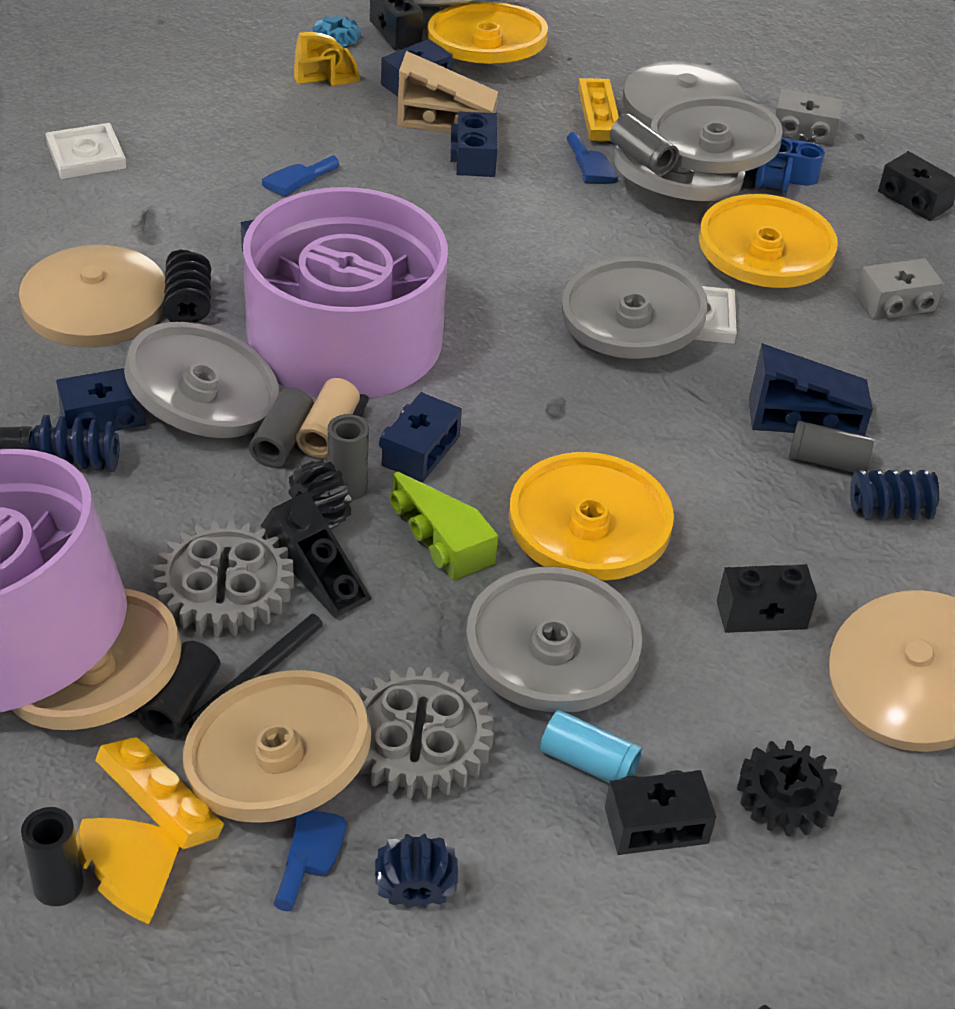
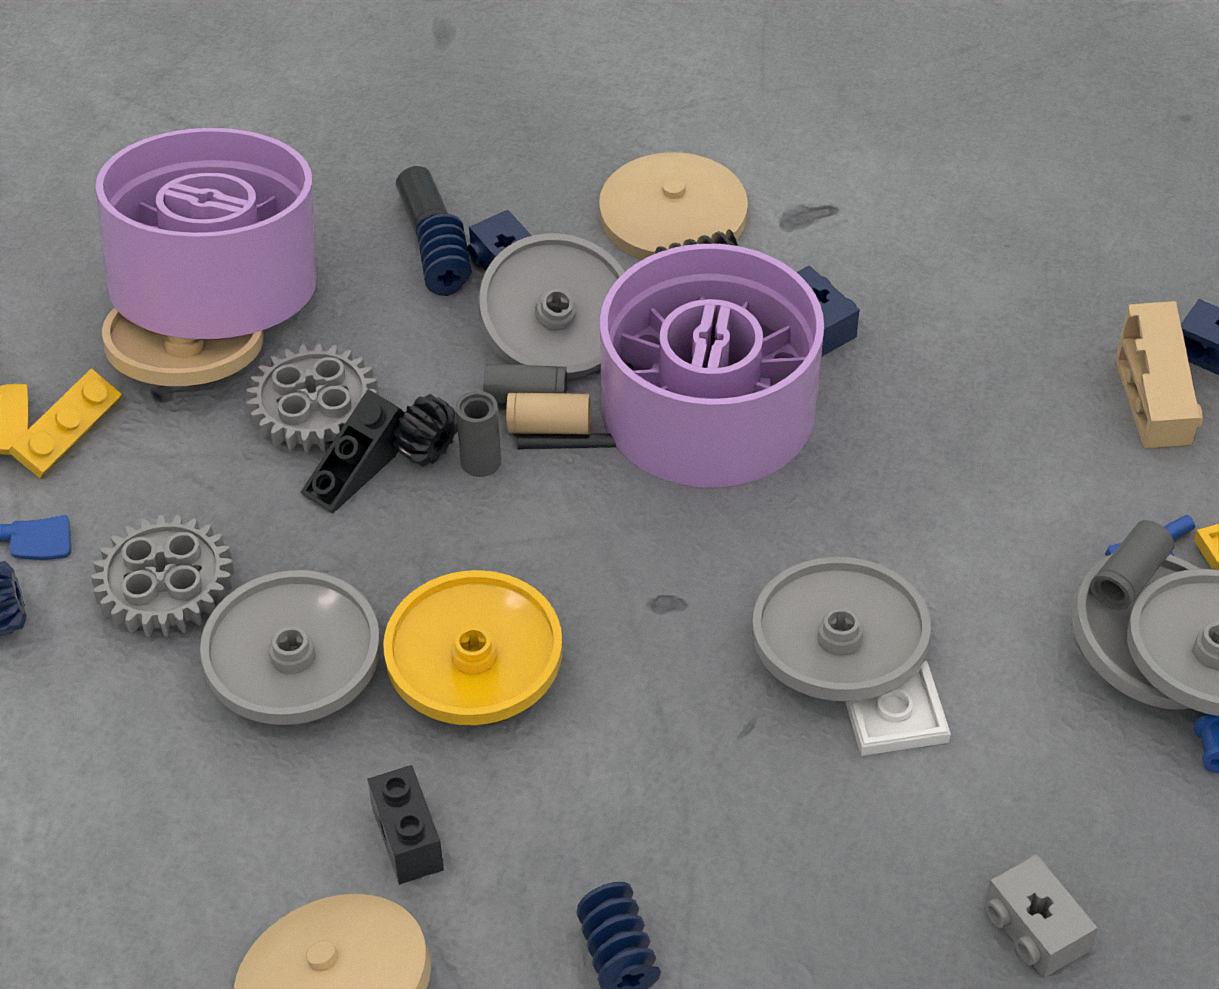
camera: 80 degrees right, 5 degrees up
(85, 150) = (901, 133): white tile -> none
(175, 702) = (174, 404): black pin -> none
(269, 659) = (218, 453): black bar -> none
(277, 746) = (114, 476): tan dish -> none
(297, 175) = (955, 298): blue piece -> none
(322, 58) = (1166, 255): yellow brick -> none
(420, 436) = (553, 491): dark blue brick -> none
(450, 529) = (425, 540): lime slope -> none
(474, 144) = (1098, 429): dark blue brick -> none
(590, 748) = (168, 707): medium azure pin -> none
(659, 812) = (104, 772): black brick -> none
(768, 240) = (1052, 747): yellow dish -> none
(799, 389) = (753, 823): dark blue wedge -> none
(807, 800) = (154, 878): black gear -> none
(831, 447) = (682, 866): dark grey pin -> none

